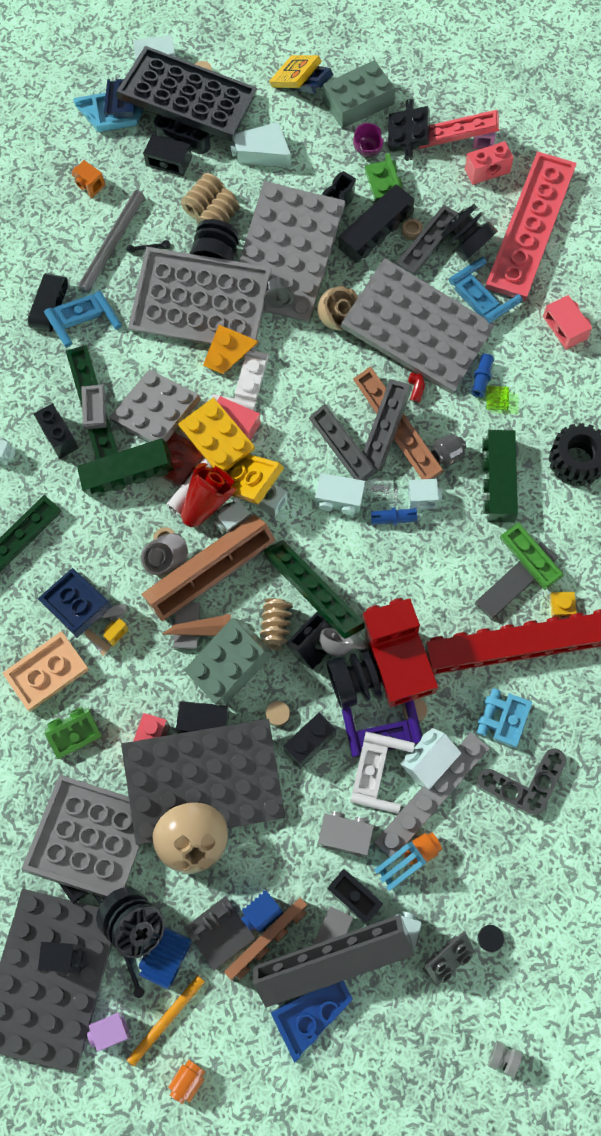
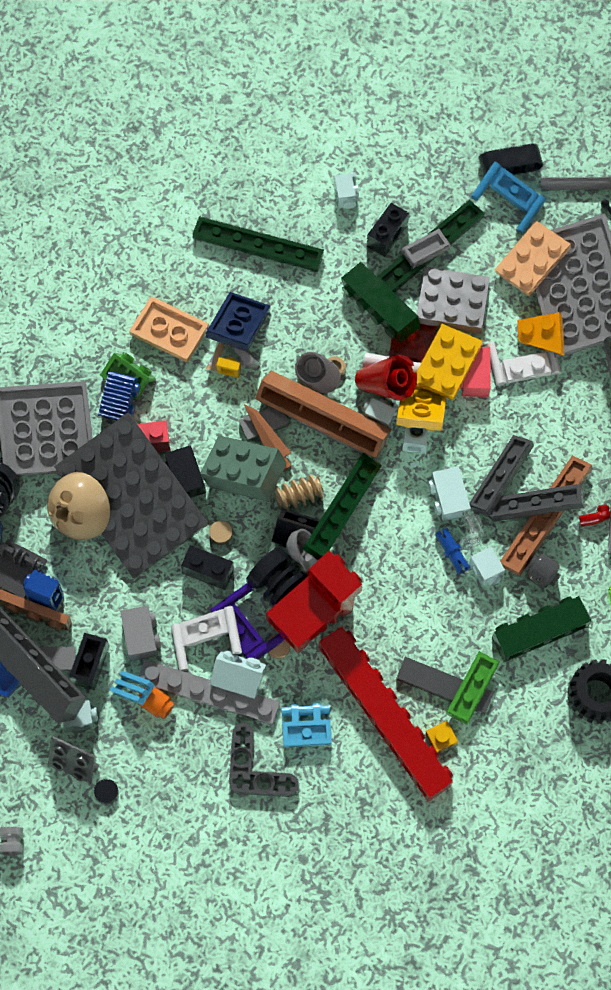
camera: 60 degrees right, 0 degrees up
(93, 749) = (118, 396): none -> blue brick
(153, 325) = (532, 258): none -> light nougat plate

